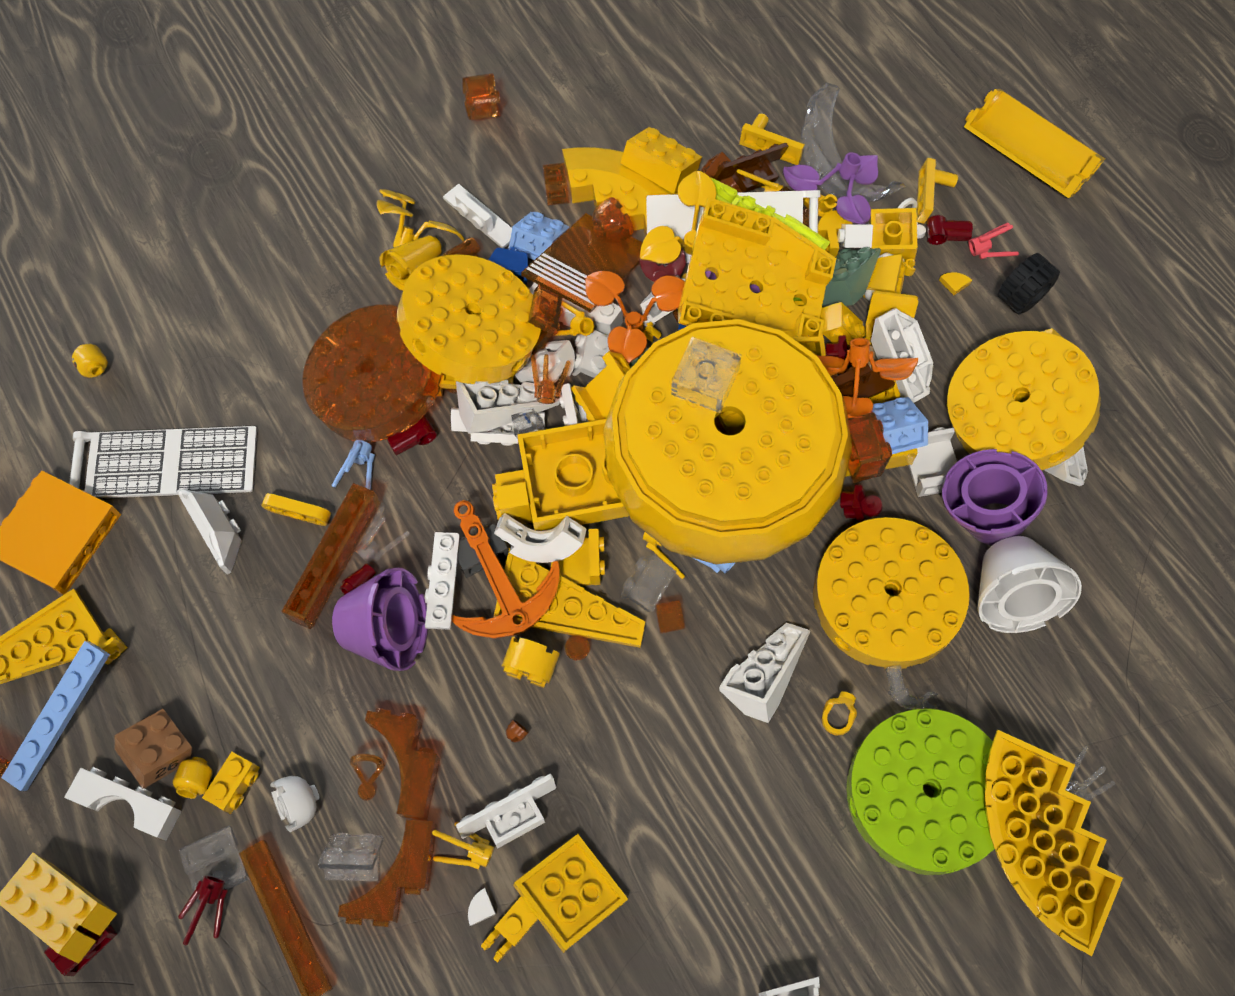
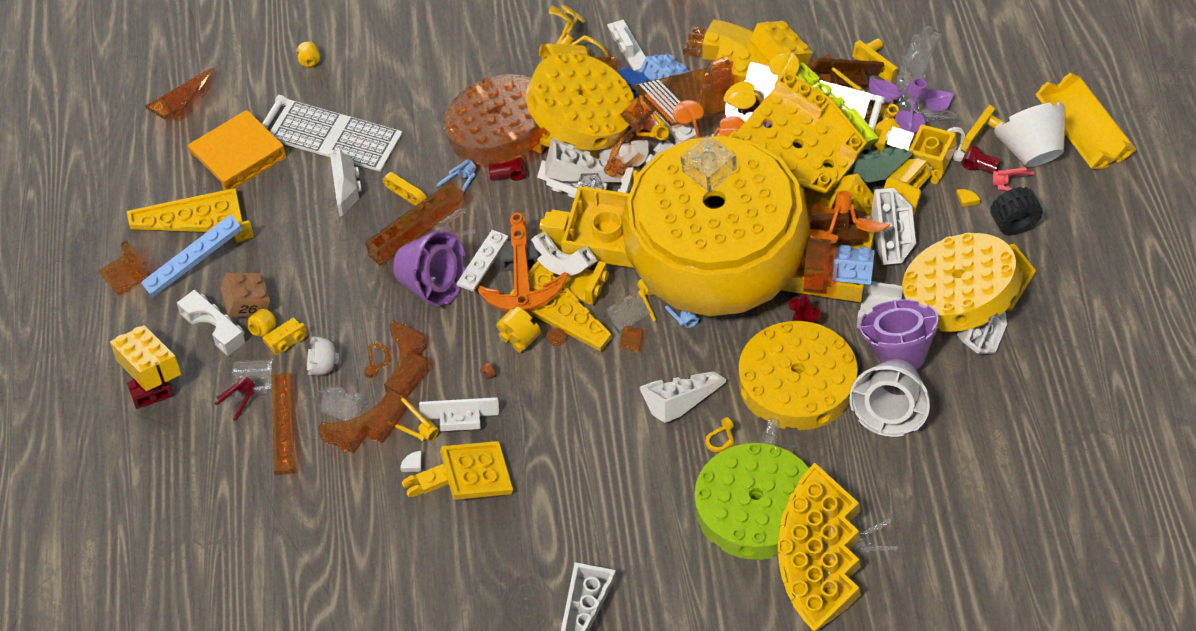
camera: 25 degrees right, 15 degrees down
(1003, 181) = (1035, 134): none -> white cone

